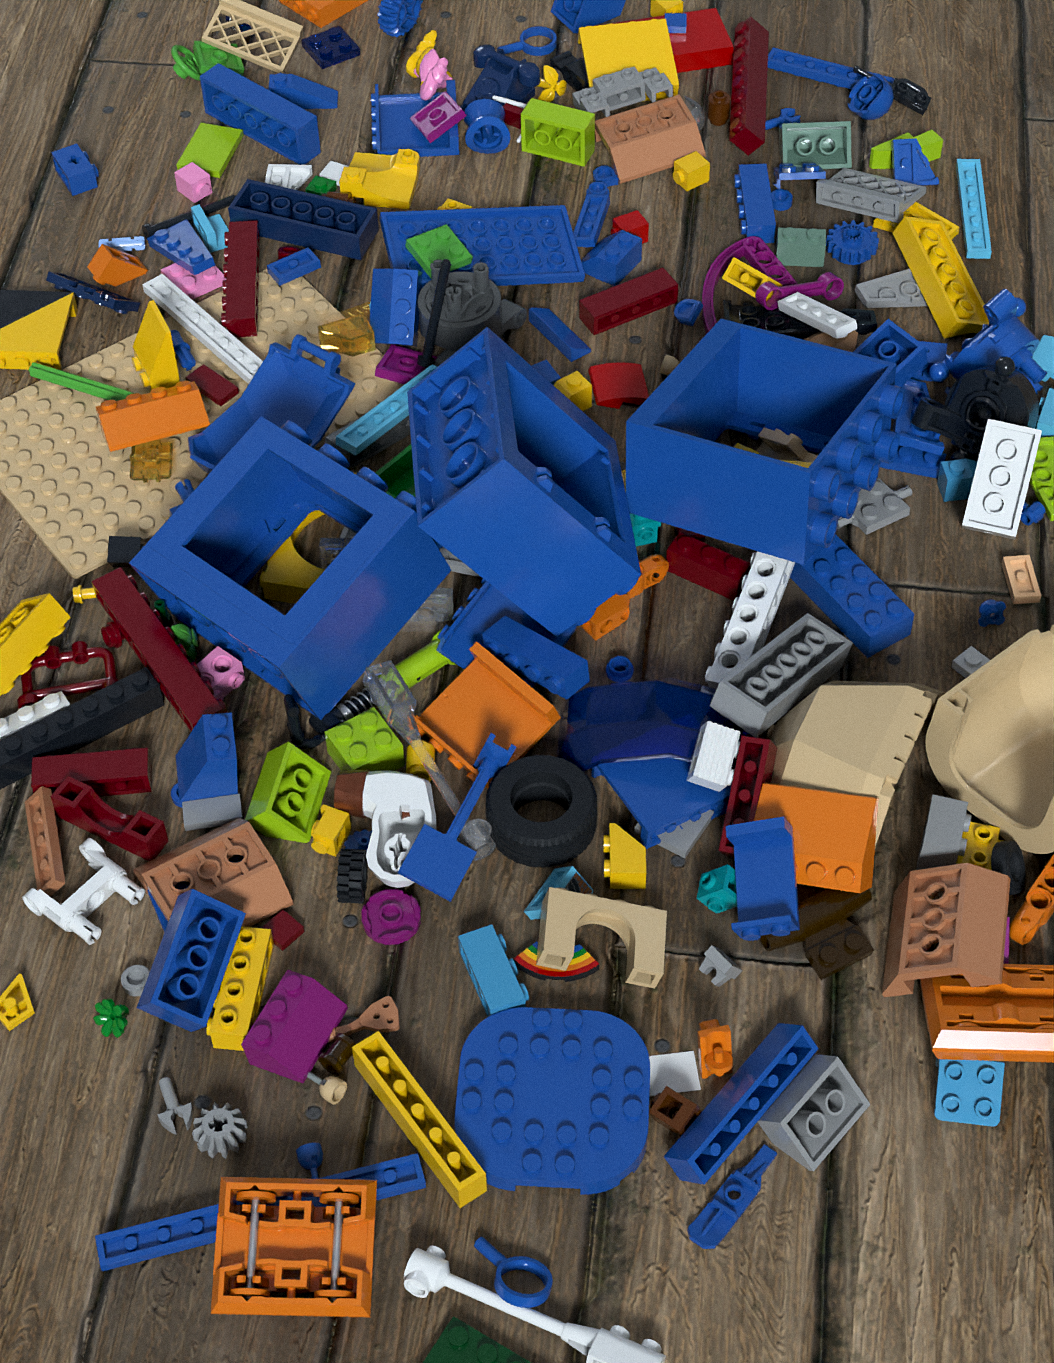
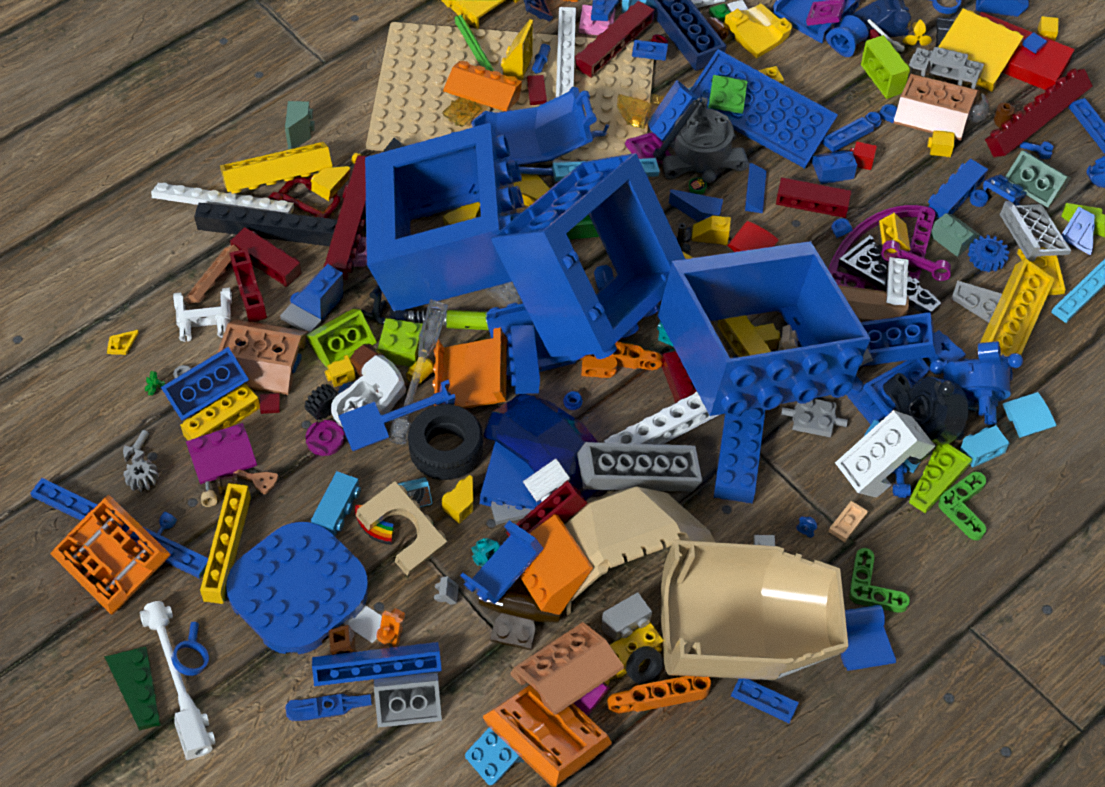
camera: 40 degrees right, 5 degrees up
(81, 636) = (329, 181): none -> yellow slope

